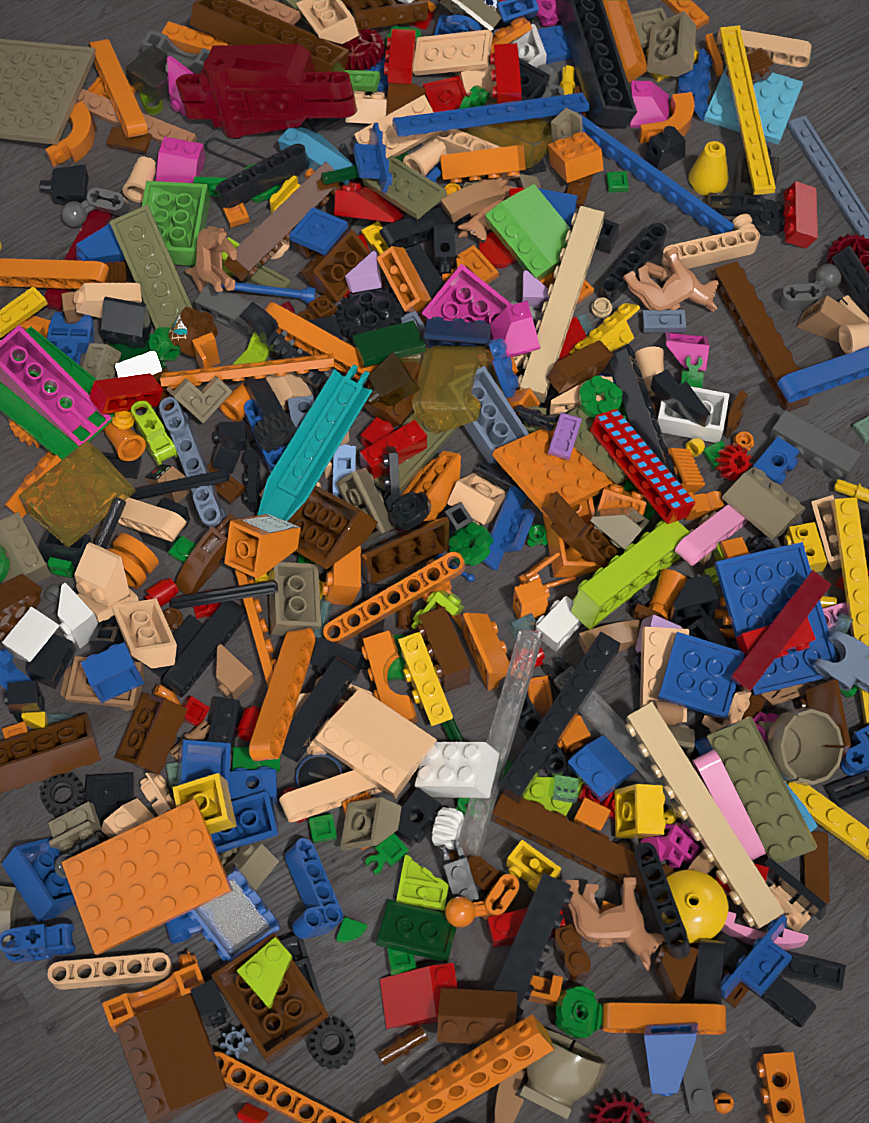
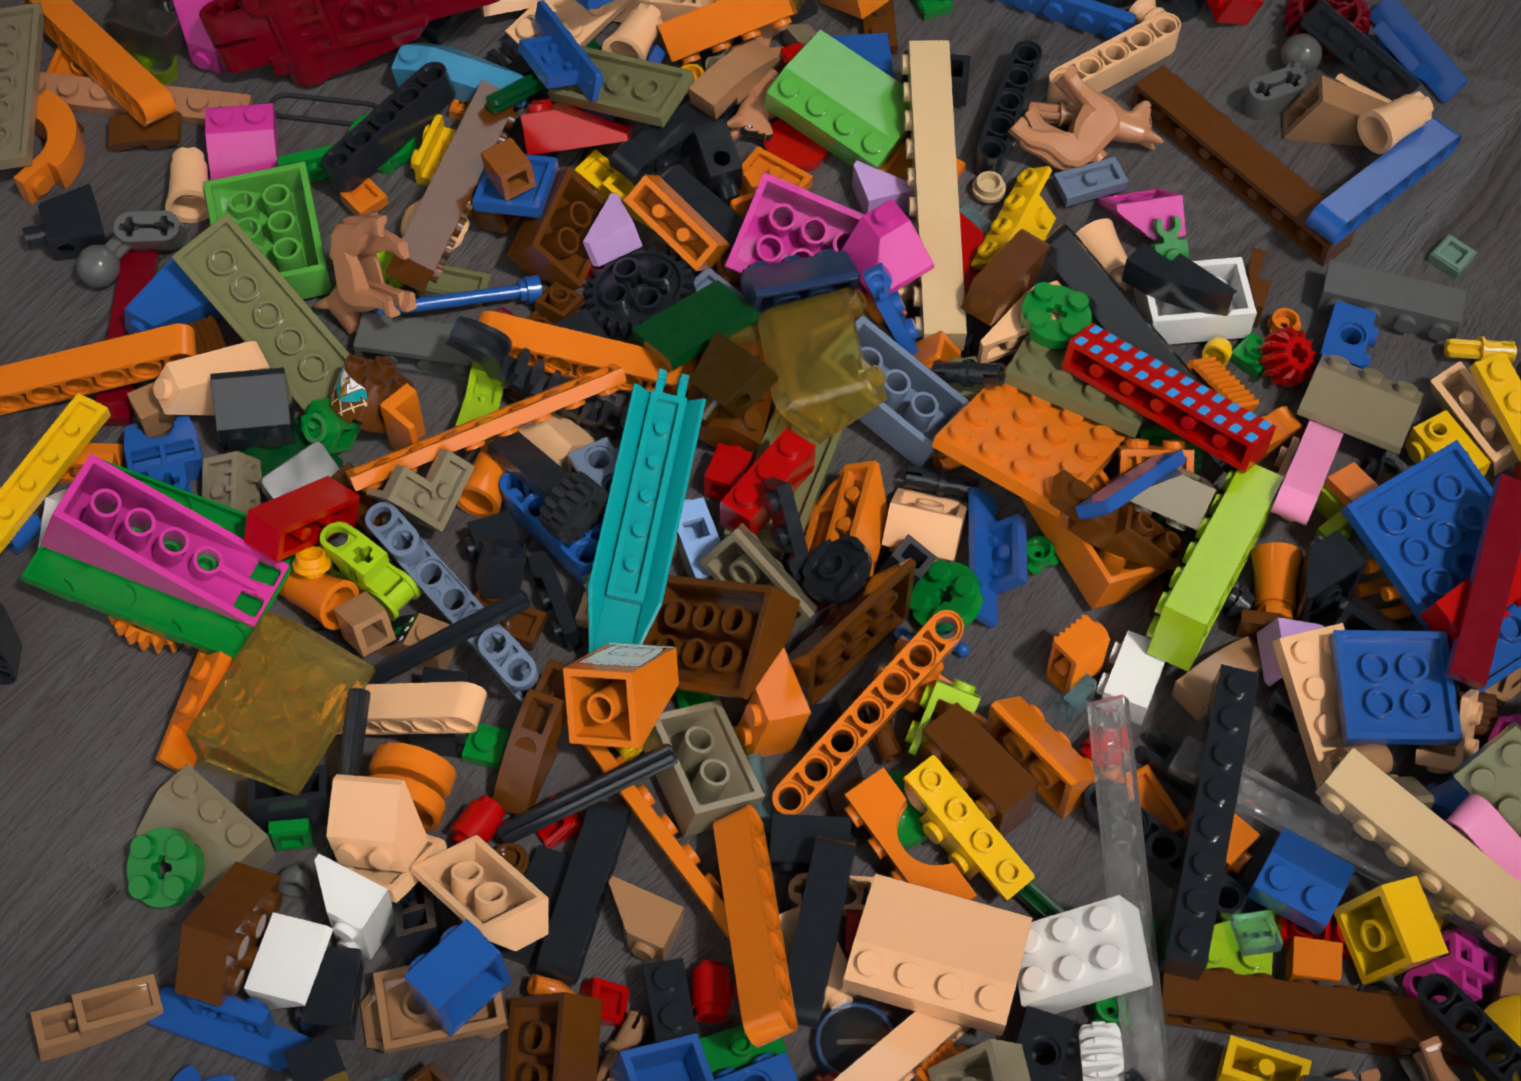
camera: 20 degrees left, 5 degrees down
(140, 463) = (364, 624): none -> medium nougat brick
(314, 221) = (508, 169): none -> dark orange brick
(532, 574) = (1060, 617): orange plant -> none
(564, 436) = (1031, 386): medium lavender plate -> none
(594, 511) = (1130, 485): none -> blue tile

